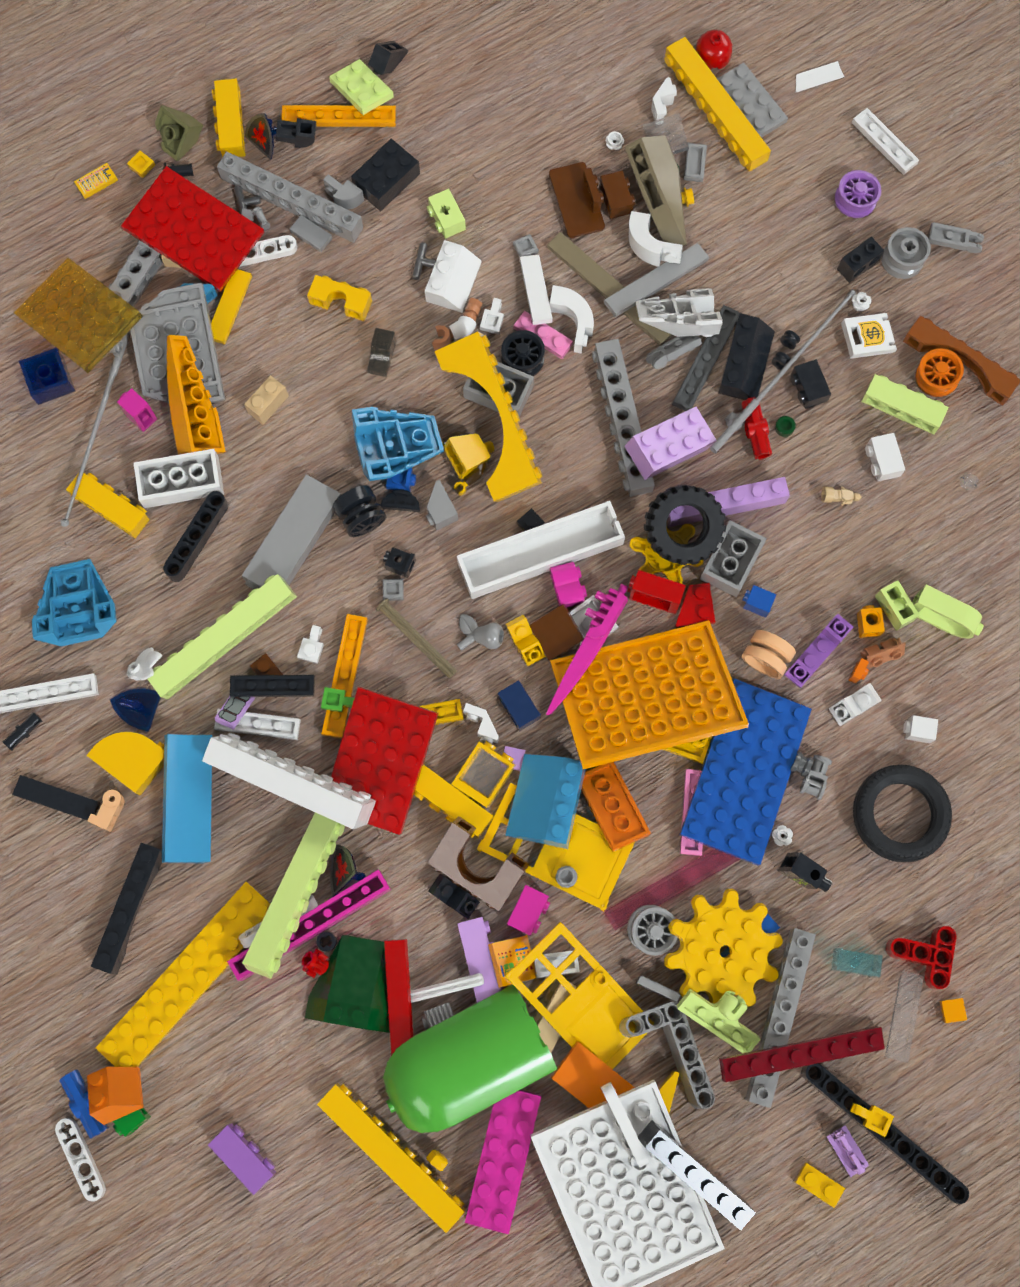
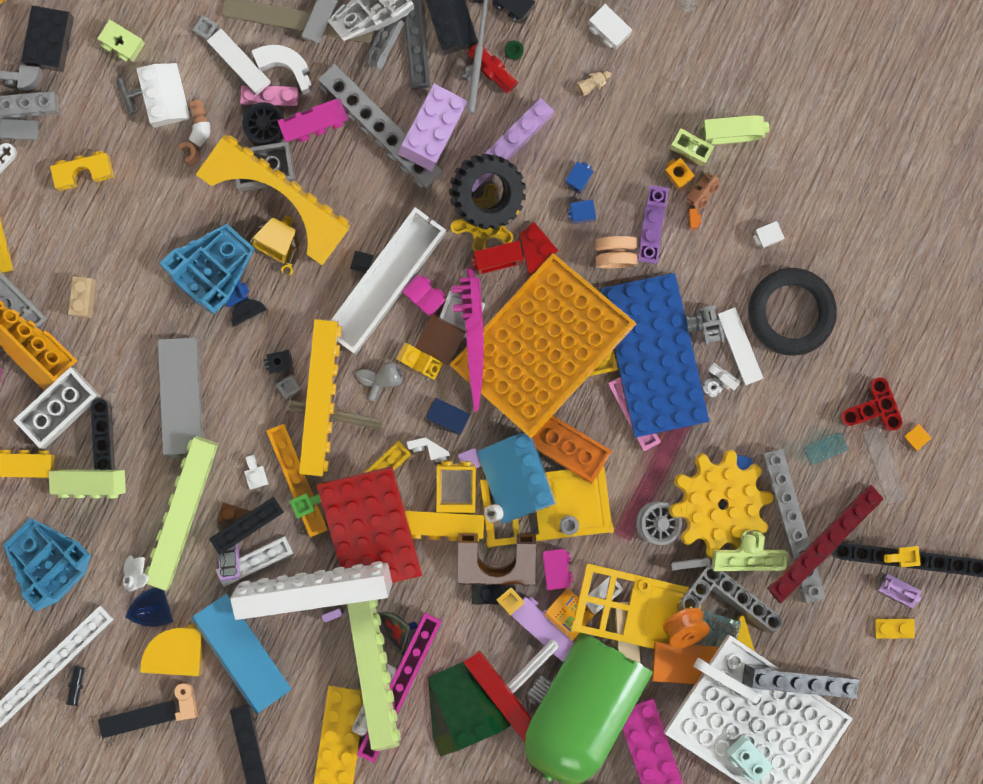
camera: 30 degrees left, 10 degrees up
(159, 556) = (87, 483): none -> yellowish green brick
(294, 817) = (332, 615): none -> lavender tile
(315, 963) = (422, 712): red gear -> none
(325, 935) = (414, 686): black bush -> none
(359, 511) = (224, 344): black wheel -> none
(381, 352) = (148, 197): clear smoke arch -> none
(414, 611) = (319, 397): none -> yellow brick
(440, 508) = (282, 297): light grey slope -> none
(465, 911) = (510, 601): none -> yellow plate
(492, 318) = (219, 109): white plate -> none
(508, 819) = (488, 513): none -> white bush
(567, 375) = (313, 121): none -> dark pink wedge
(597, 1219) = (749, 758): none -> light aqua brick
(616, 1046) = (686, 628): none -> orange wheel
(648, 1066) = (721, 626): none -> clear light blue panel
(733, 559) = (542, 191): light grey brick -> none
(775, 568) = (579, 176): none -> blue brick
(801, 838) = (726, 378): none -> white plate
(805, 871) = (746, 405): black torso -> none
(831, 815) = (740, 346): none -> white tile
(855, 704) = (706, 248): white slope -> none

